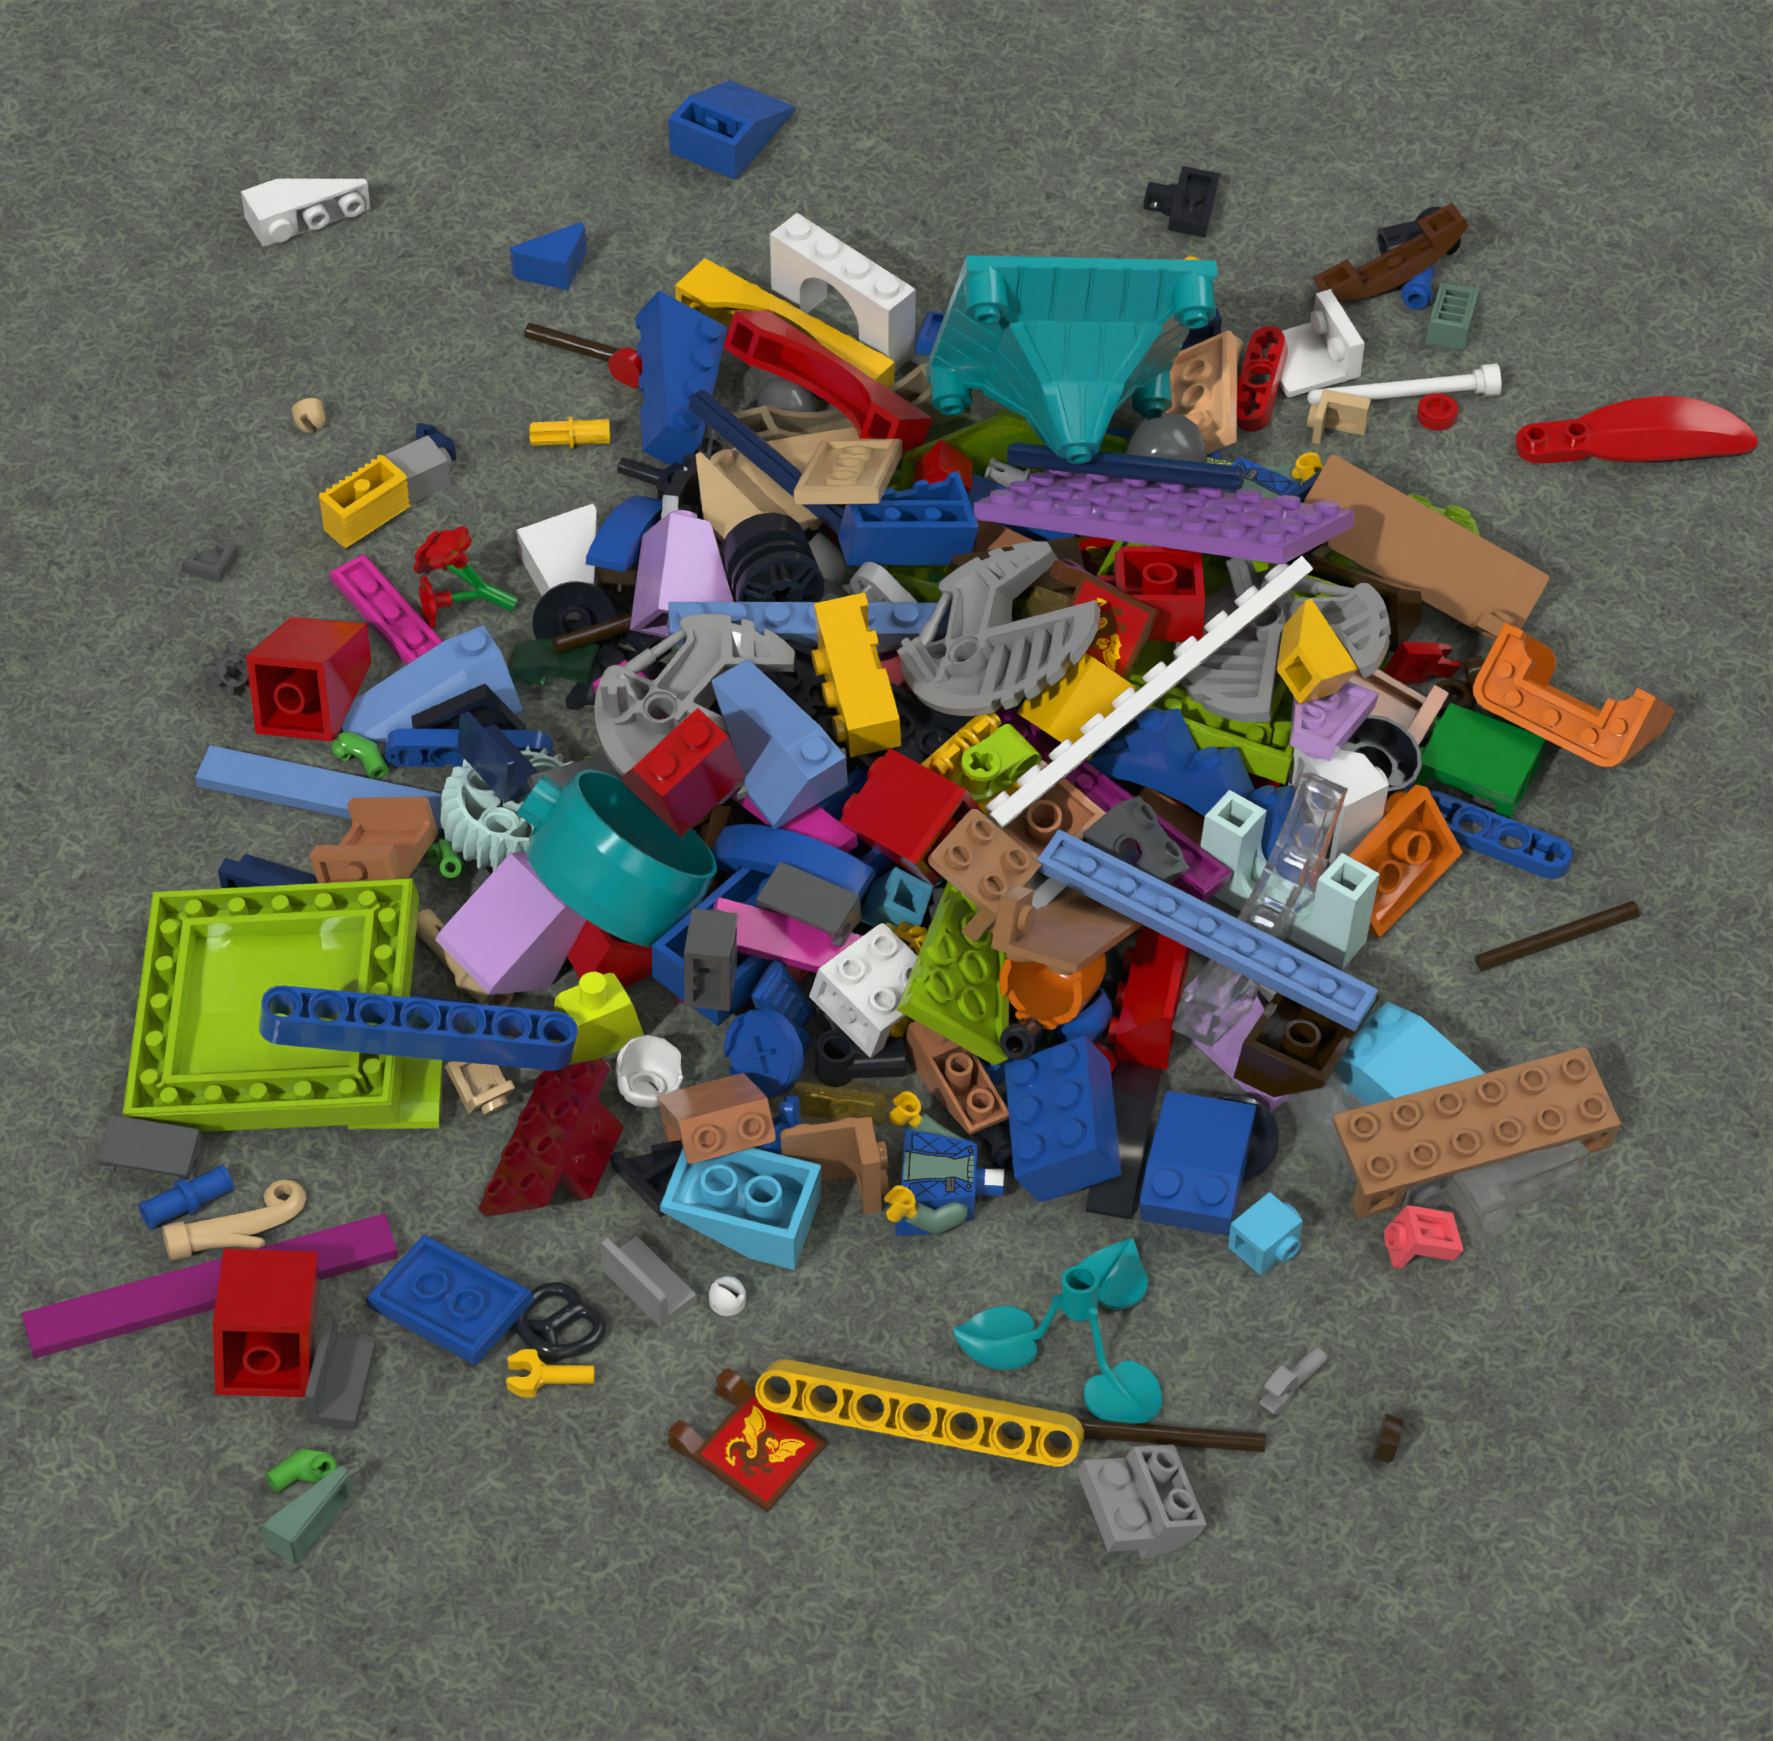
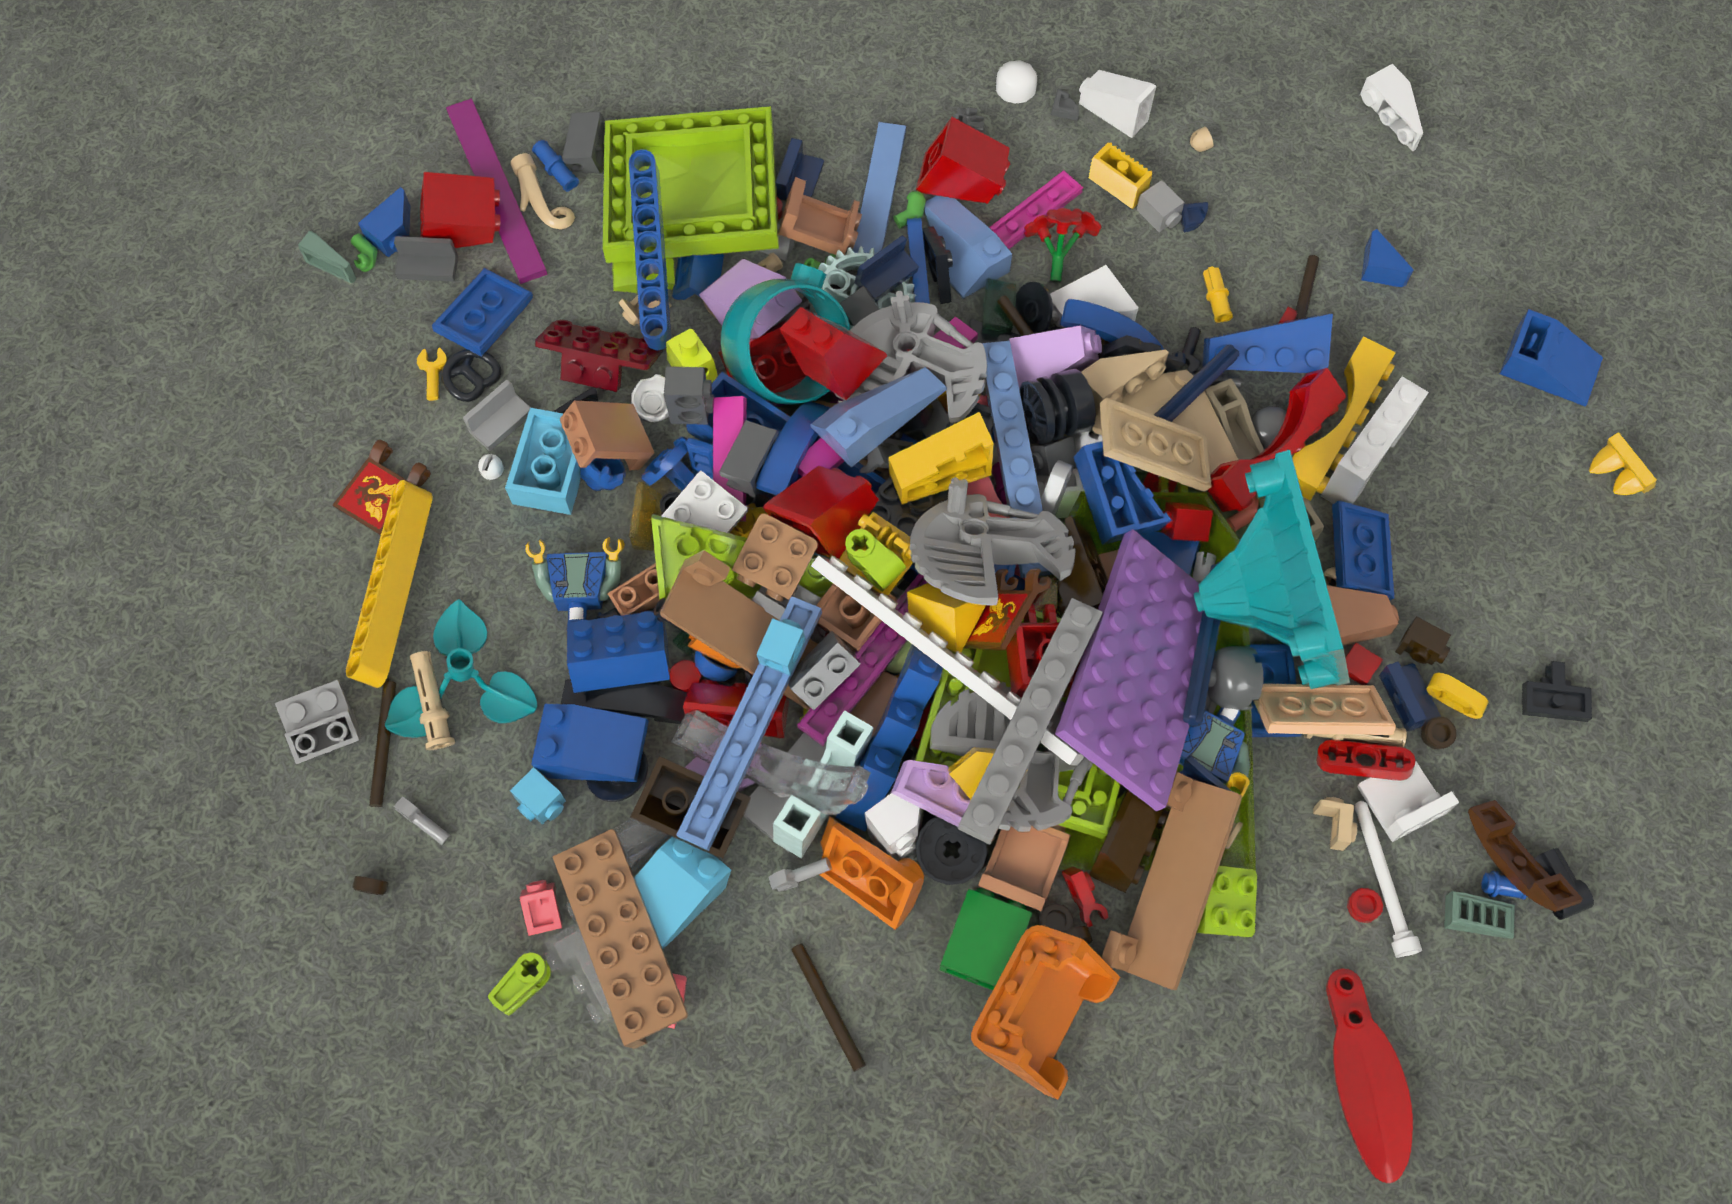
camera: 85 degrees right, 15 degrees up
(155, 610) = (1016, 82): none -> white hair
(231, 487) = (1118, 100): none -> white slope
(259, 1423) = (387, 221): none -> blue slope
(843, 1151) = (578, 528): medium nougat bracket -> none
(874, 87) = (1619, 454): none -> yellow tile
(1117, 864) = (781, 645): none -> medium azure brick
(1137, 1356) = (433, 715): none -> tan pin
(1231, 311) = (1438, 733): none -> dark brown tile
(1258, 588) = (1029, 722): none -> light grey plate
(1393, 957) = (790, 878): none -> light grey bar
(1498, 827) = (917, 952): blue beam -> none
(1529, 1259) = (518, 983): none -> lime piece

